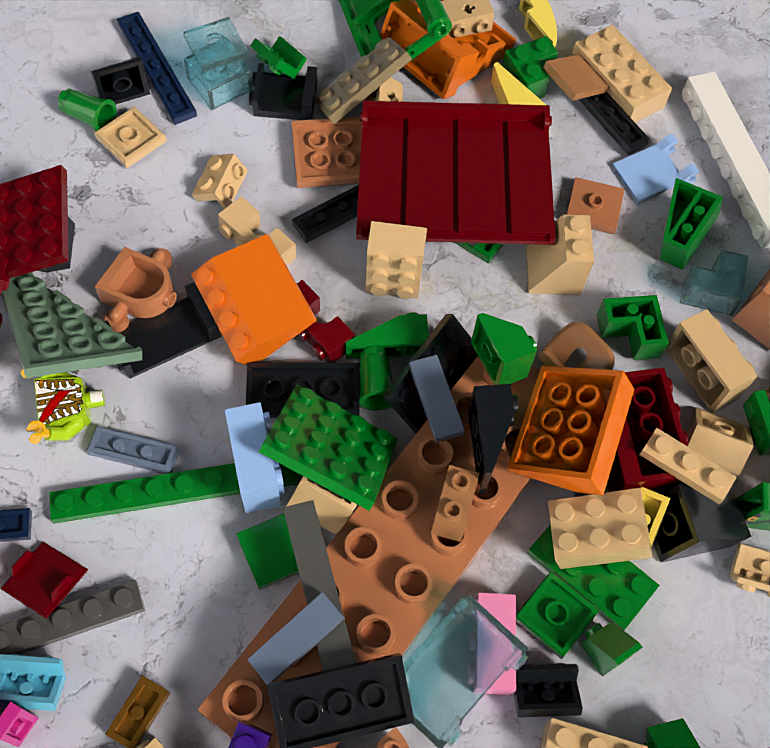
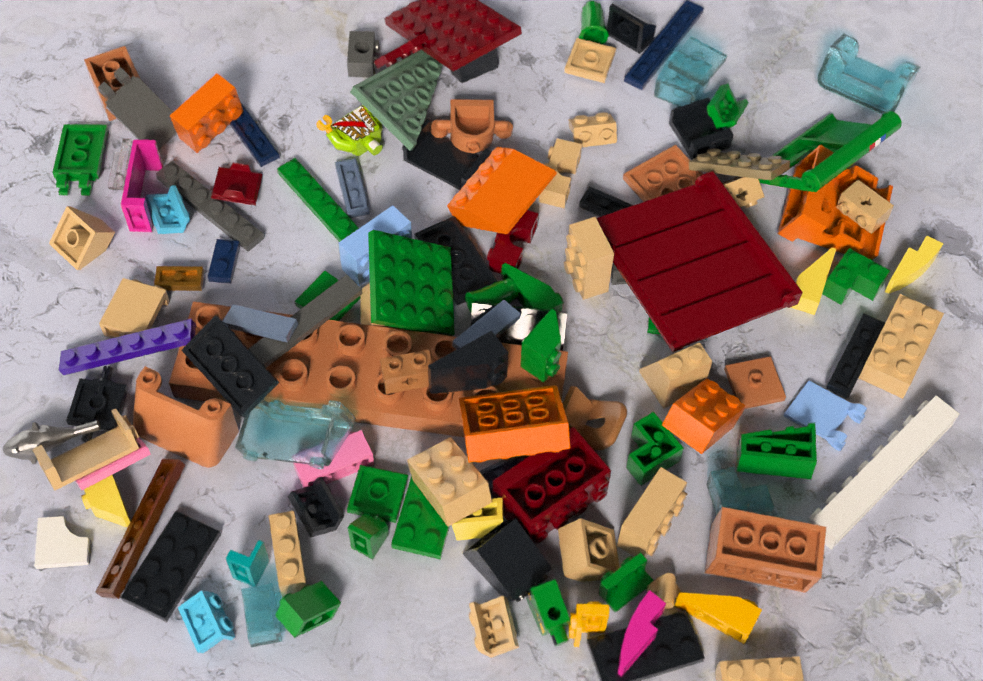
camera: 65 degrees right, 5 degrees down
(144, 646) = (223, 261): none -> dark blue plate
(575, 77) = (864, 309): medium nougat tile -> none
(630, 260) = (703, 415): none -> orange brick
(688, 466) = (532, 515): tan plate -> none

